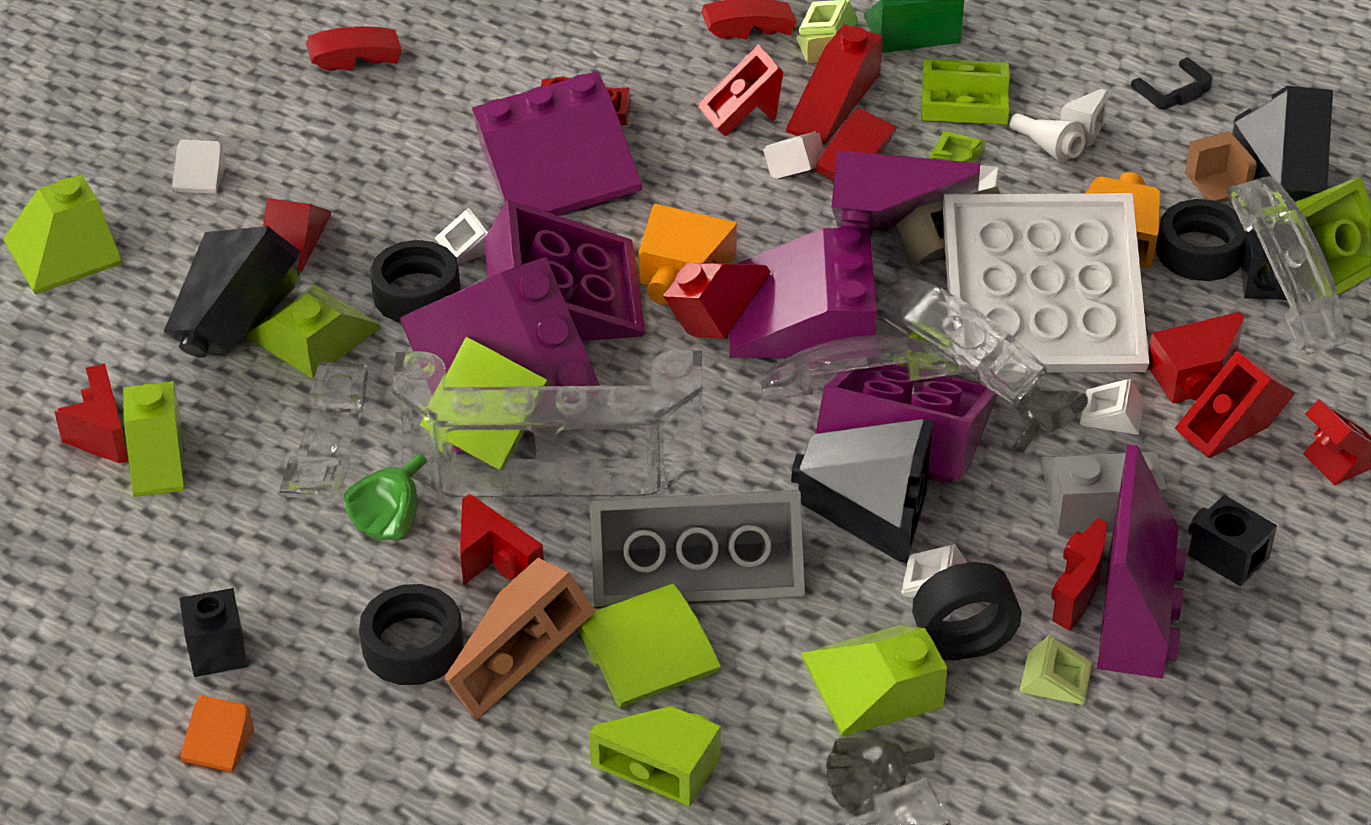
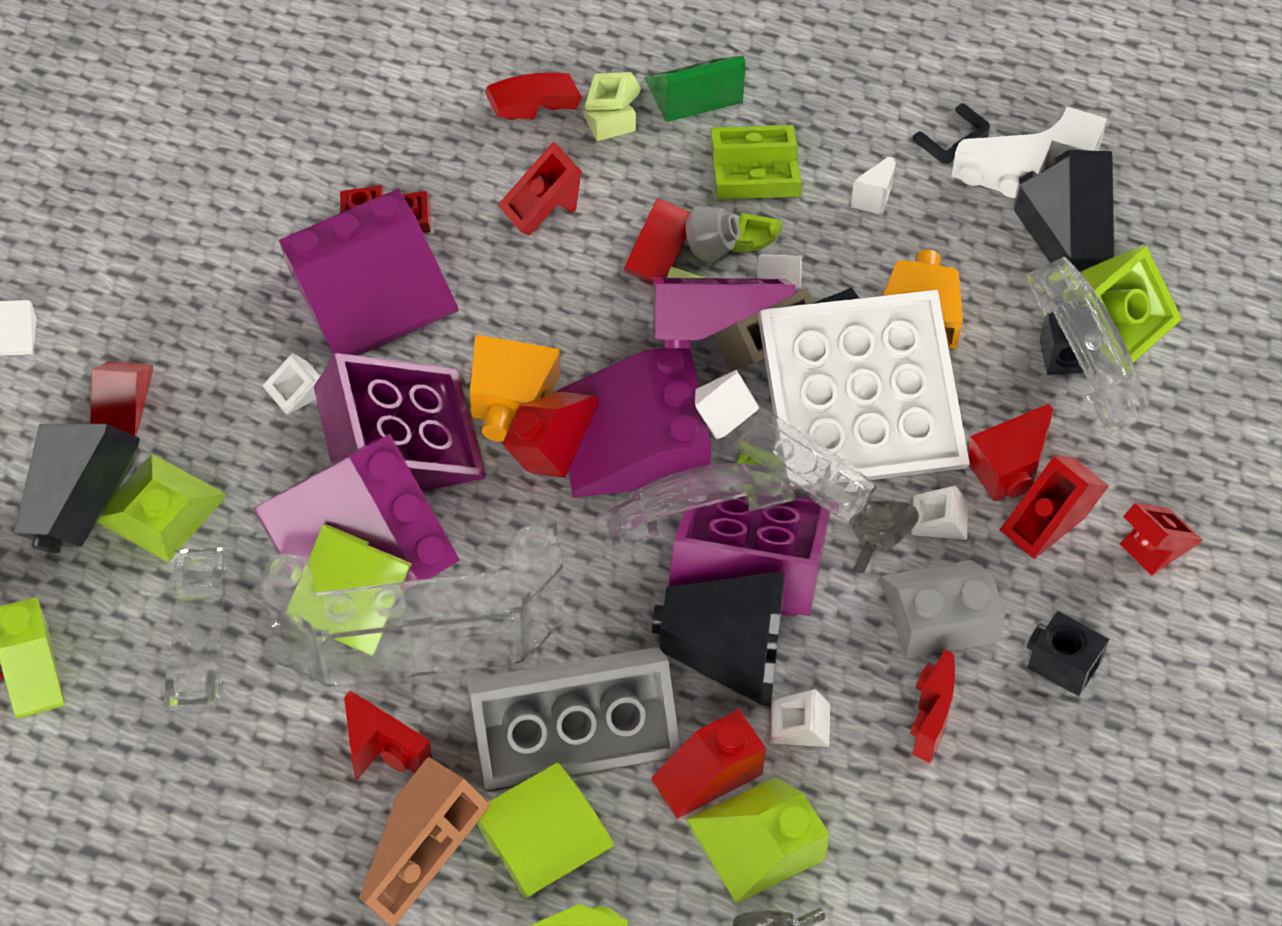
camera: 10 degrees left, 10 degrees up
(213, 632) = (126, 871): black brick -> none
(341, 47) = (133, 167): red slope -> none
(385, 501) = (266, 700): bright green piece -> none
(411, 665) = (326, 881): black tyre -> none
(412, 258) = (261, 470): black tyre -> none
(793, 155) = (601, 255): white slope -> none
(834, 601) = (711, 764): none -> red slope
(838, 82) = (631, 169): red slope -> none
(897, 276) = (725, 403): none -> white slope
(909, 136) = (711, 232): none -> light grey cone
(962, 586) = (838, 765): black tyre -> none
(1056, 672) = (923, 812): yellowish green slope -> none
(1057, 137) = (852, 211): white cone -> none
(1141, 577) = (991, 712): magenta slope -> none
(1199, 261) = (993, 341): black tyre -> none
(1215, 104) = (1005, 159): none -> white arch
(1217, 164) = (1010, 233): medium nougat panel -> none

